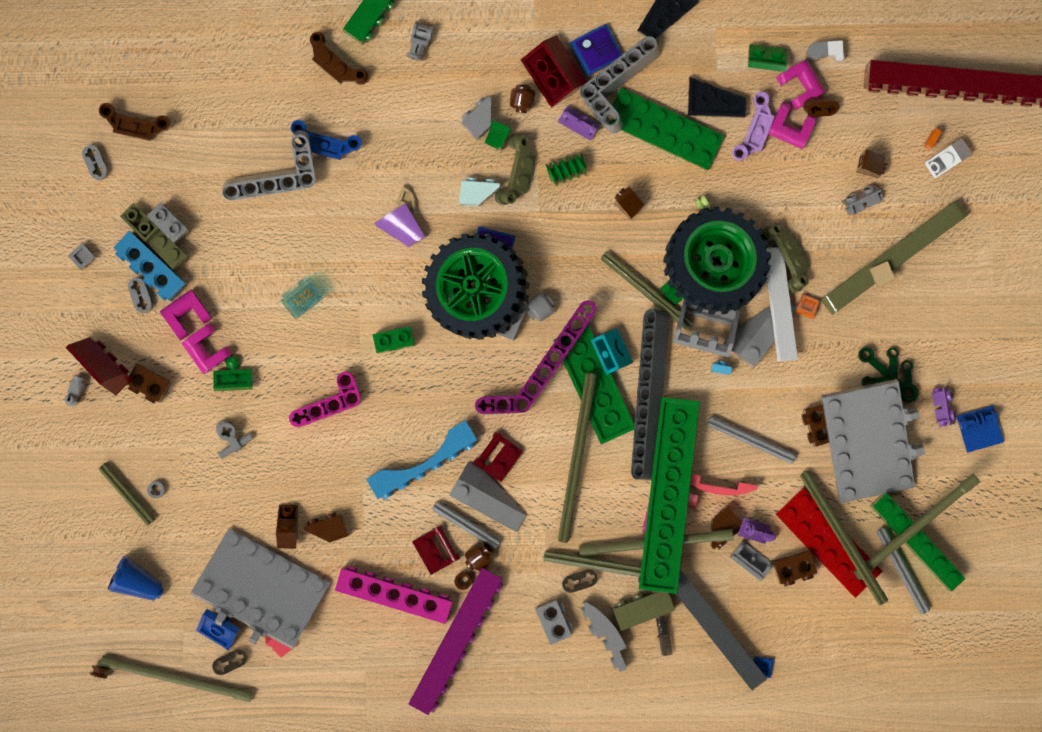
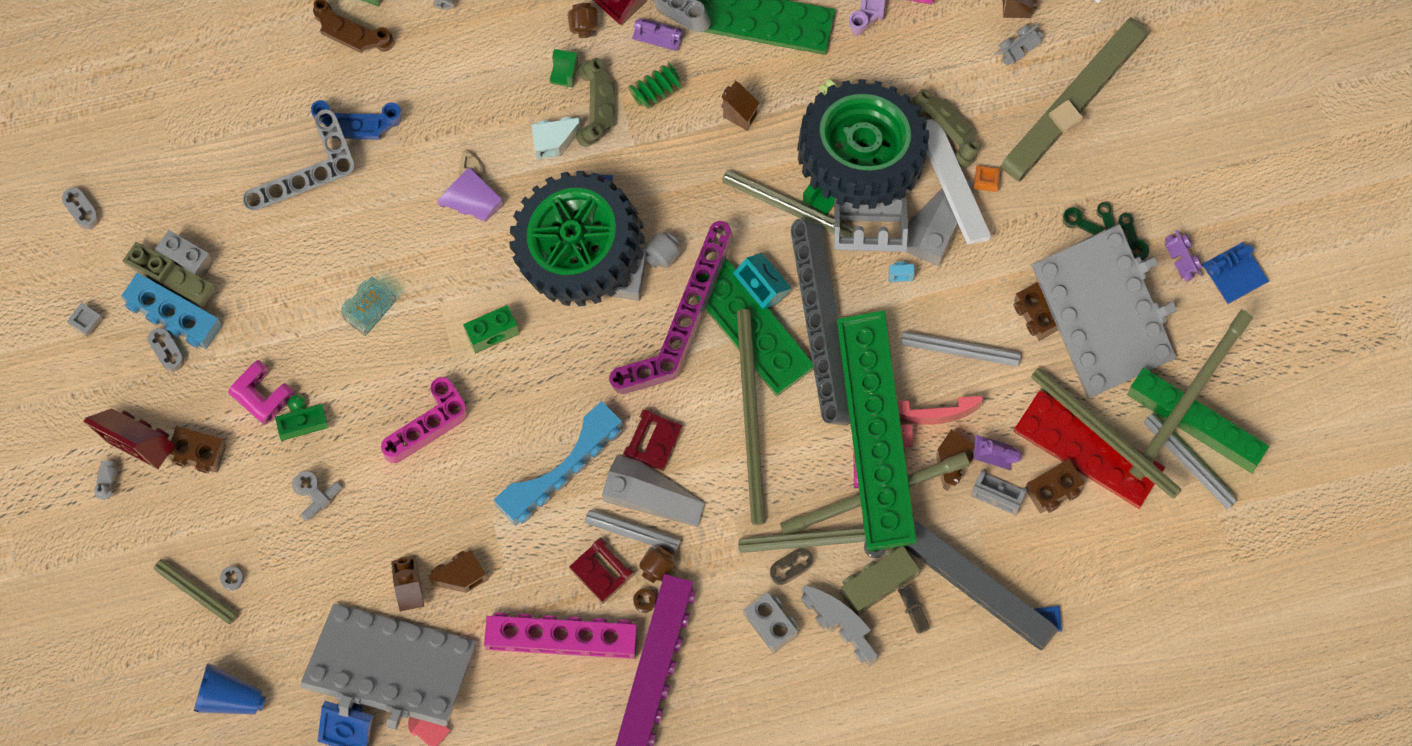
camera: 10 degrees left, 15 degrees down
(134, 126) = (120, 155): reddish brown plate -> none
(179, 308) = (219, 350): dark pink connector -> none
(478, 120) = (536, 56): light grey slope -> none

